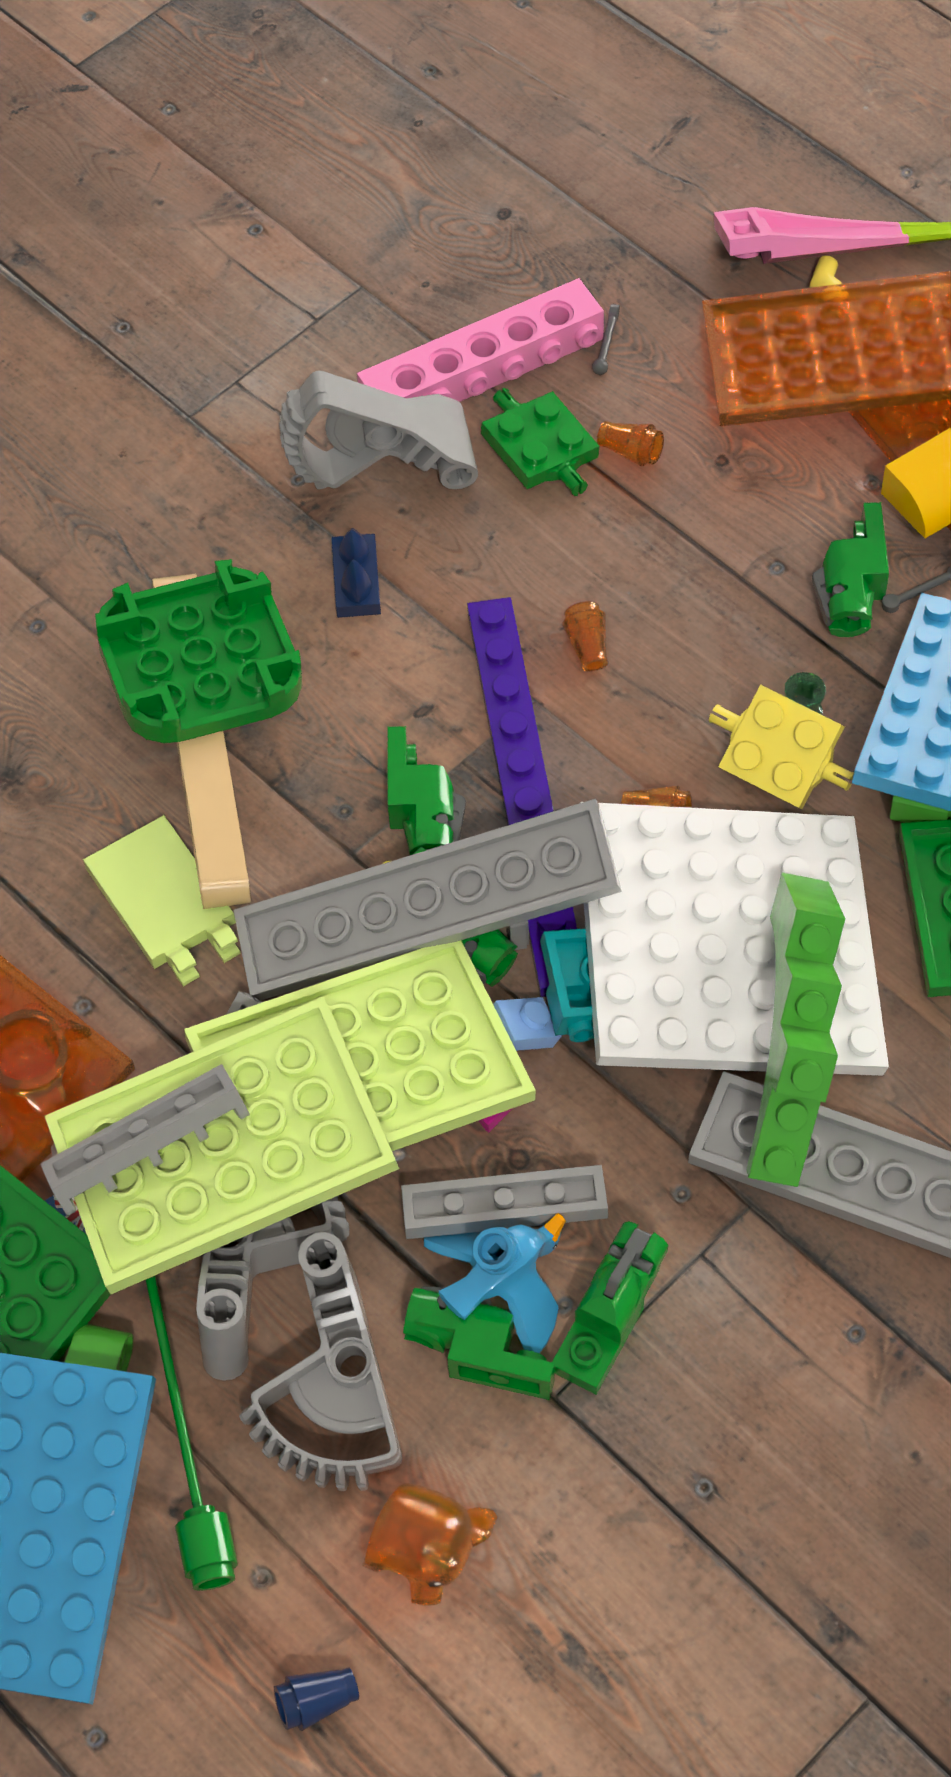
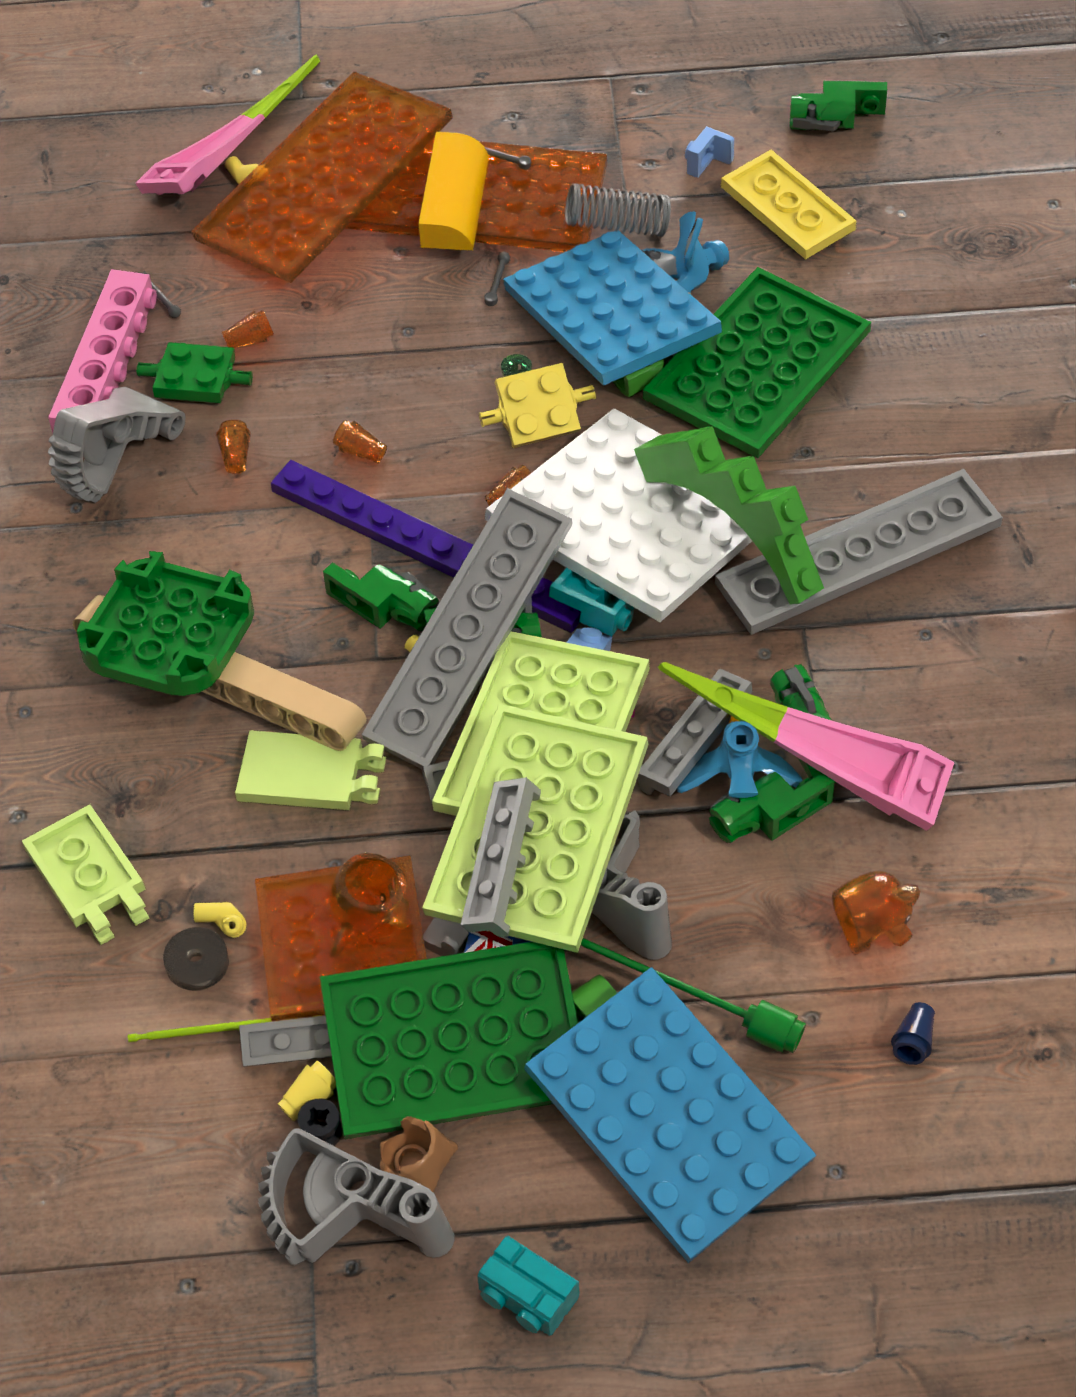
camera: 50 degrees left, 5 degrees down
(316, 1383) = (691, 852): light grey arm -> none
(356, 574) = (183, 523): dark blue tile -> none
(482, 539) = (234, 445): none -> clear orange cone
(606, 1414) = (878, 768): none -> bright pink plate
(854, 575) = (459, 295): green plate -> none

